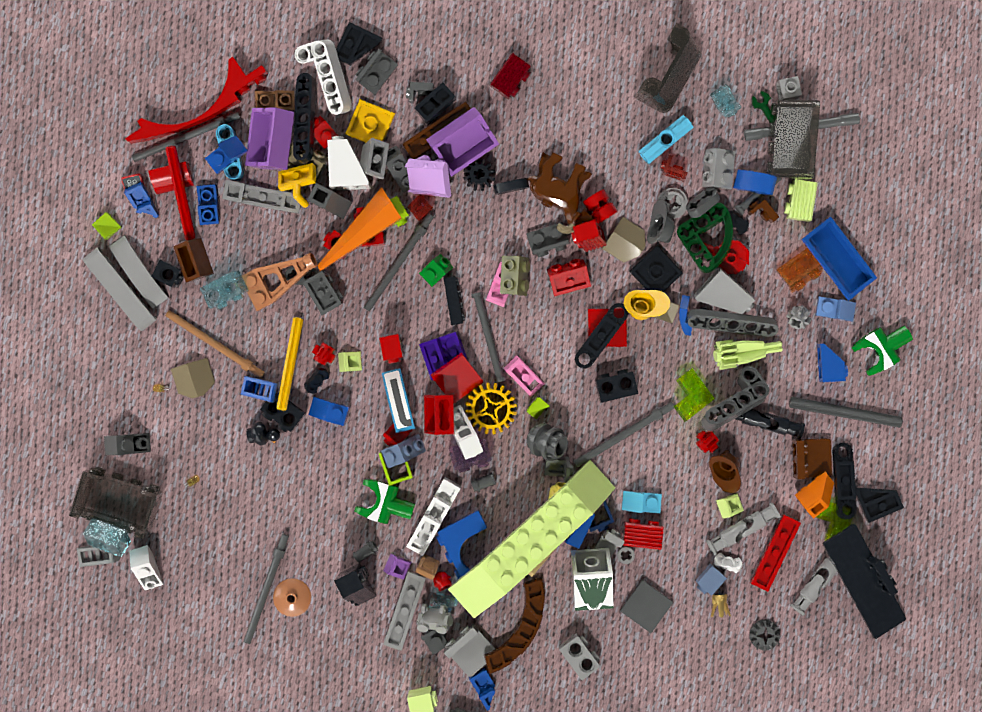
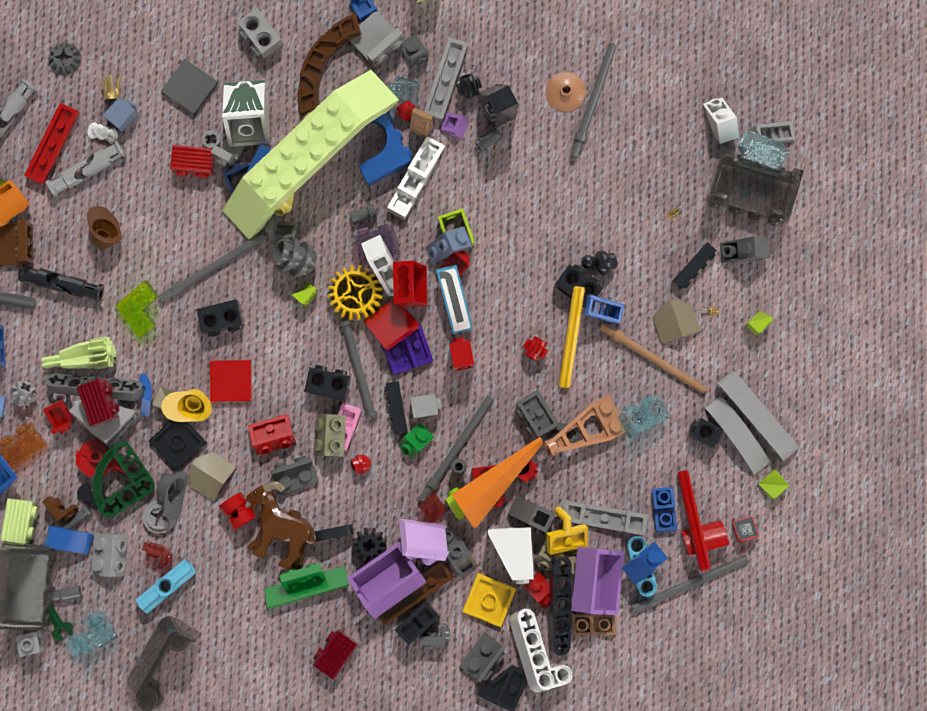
camera: 175 degrees left, 5 degrees down
(115, 375) = (759, 322): none -> lime slope
(141, 199) = (737, 513): blue slope -> none
(174, 430) = (696, 263): none -> black piece
(193, 260) = (678, 448): reddish brown brick -> none
(236, 83) = (636, 642): red slope -> none
(316, 380) = (543, 320): black piece -> none
(329, 411) = (529, 287): blue slope -> none
(350, 361) = (507, 341): yellowish green slope -> none
(374, 158) = (482, 560): light grey slope -> none
(382, 603) = (469, 85): none -> black gear
(385, 503) = (466, 190): green connector -> none
(395, 239) = (454, 462): none -> dark grey pin
(426, 301) = (425, 406): none -> light grey brick
(434, 619) = (413, 68): light grey piece -> none
(487, 248) = (360, 464): none -> red plate
(517, 318) = (326, 388): none -> black brick
(523, 375) = (321, 329): bright pink slope -> none
(538, 139) = (305, 584): none -> green bracket
(589, 236) = (249, 478): red brick -> none
(601, 335) = (236, 371): black plate -> none
(641, 502) = (194, 195): medium azure slope -> none
(702, 202) = (126, 517): dark grey beam -> none
(707, 441) = (123, 259): red gear -> none
(726, 306) = (98, 402): none -> dark red brick
(730, 505) = (100, 192): yellowish green slope -> none
(733, 403) = (92, 298): dark grey beam -> none
(743, 88) = (80, 643): none -> clear light blue bracket
(765, 295) = (59, 417): none -> red bracket

